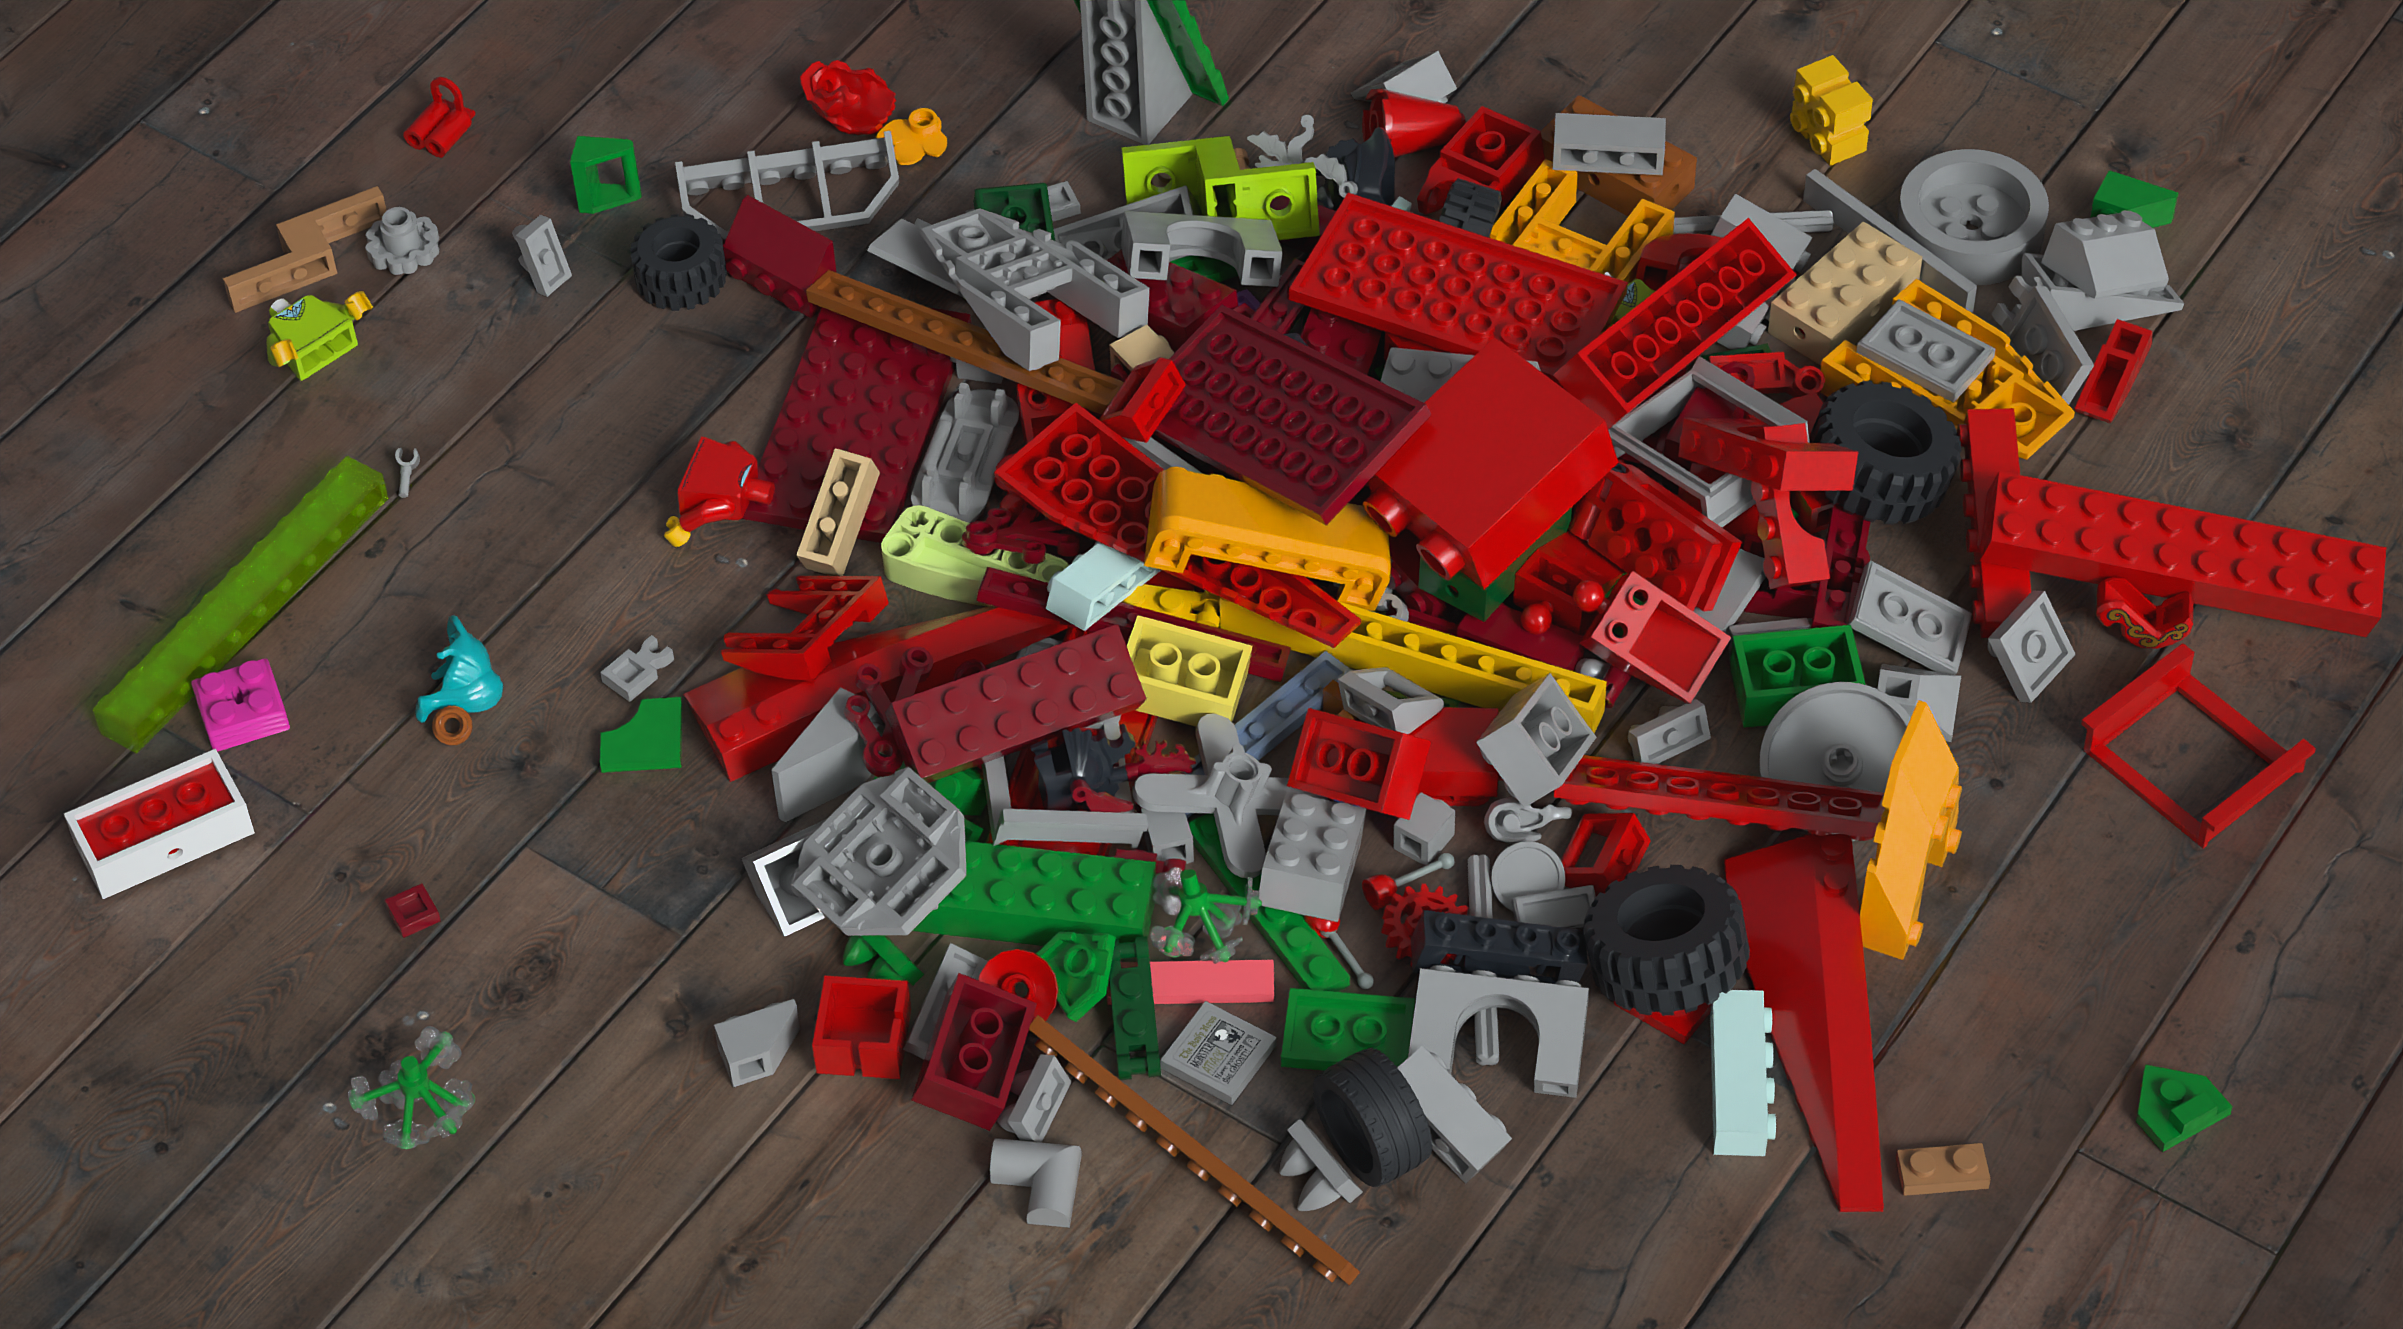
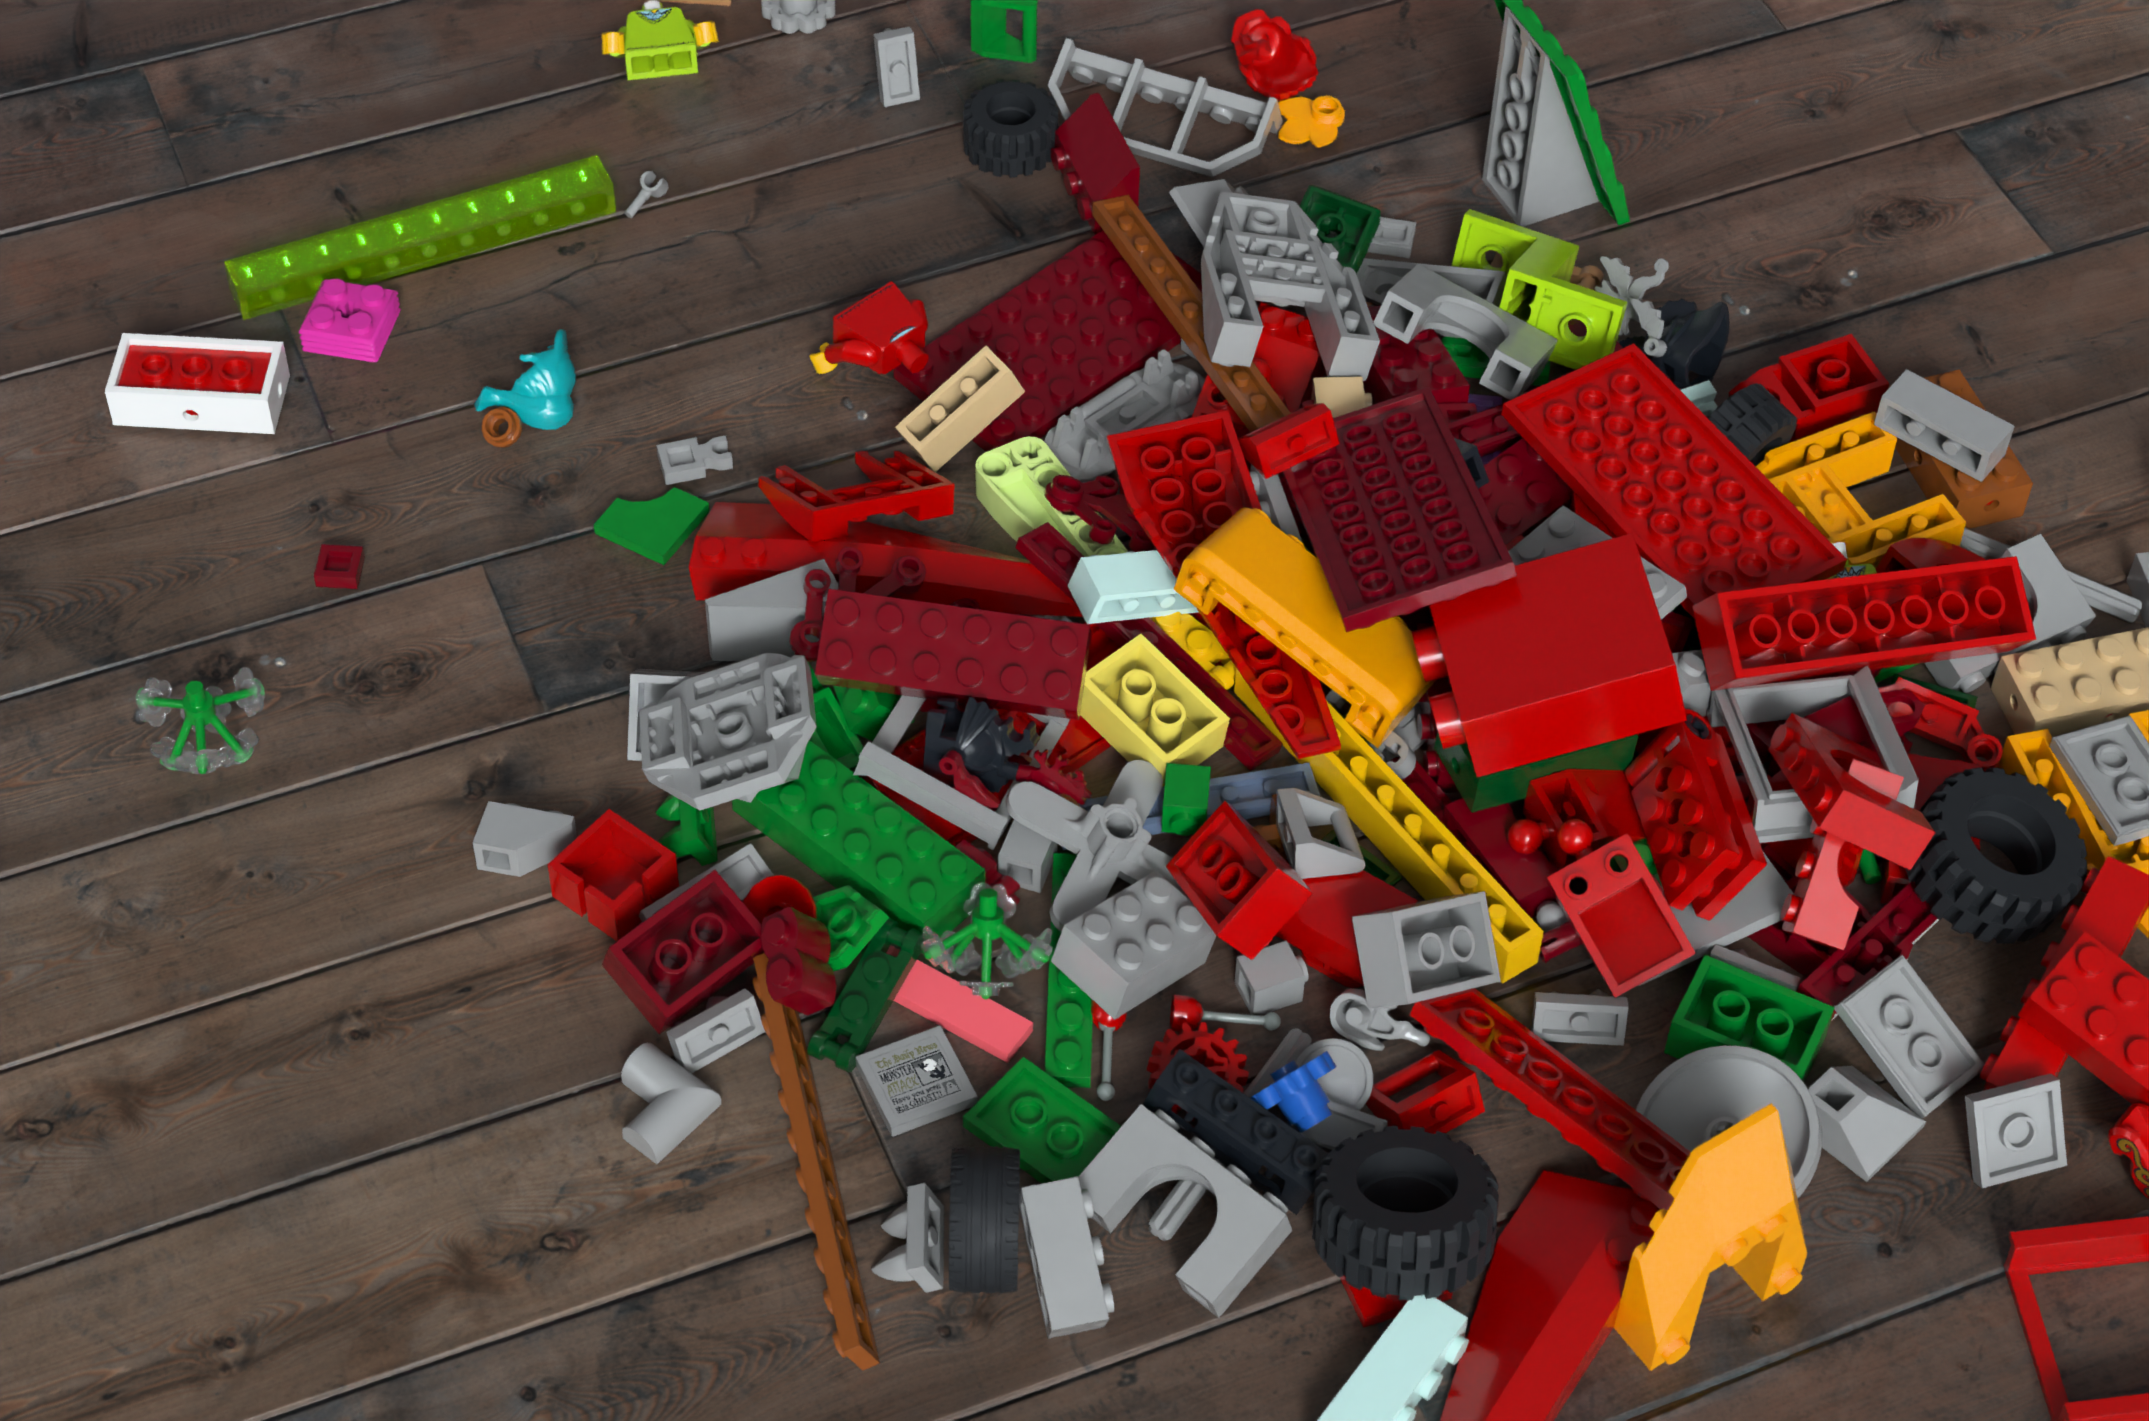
camera: 30 degrees right, 0 degrees up
(1069, 1005) = (798, 961): none -> dark red brick
(1263, 726) = (1185, 798): none -> green brick
(1410, 120) = (1774, 319): red cone -> none
(1420, 77) = (1808, 288): light grey slope -> none
(1520, 896) = (1299, 1092): none -> blue plant

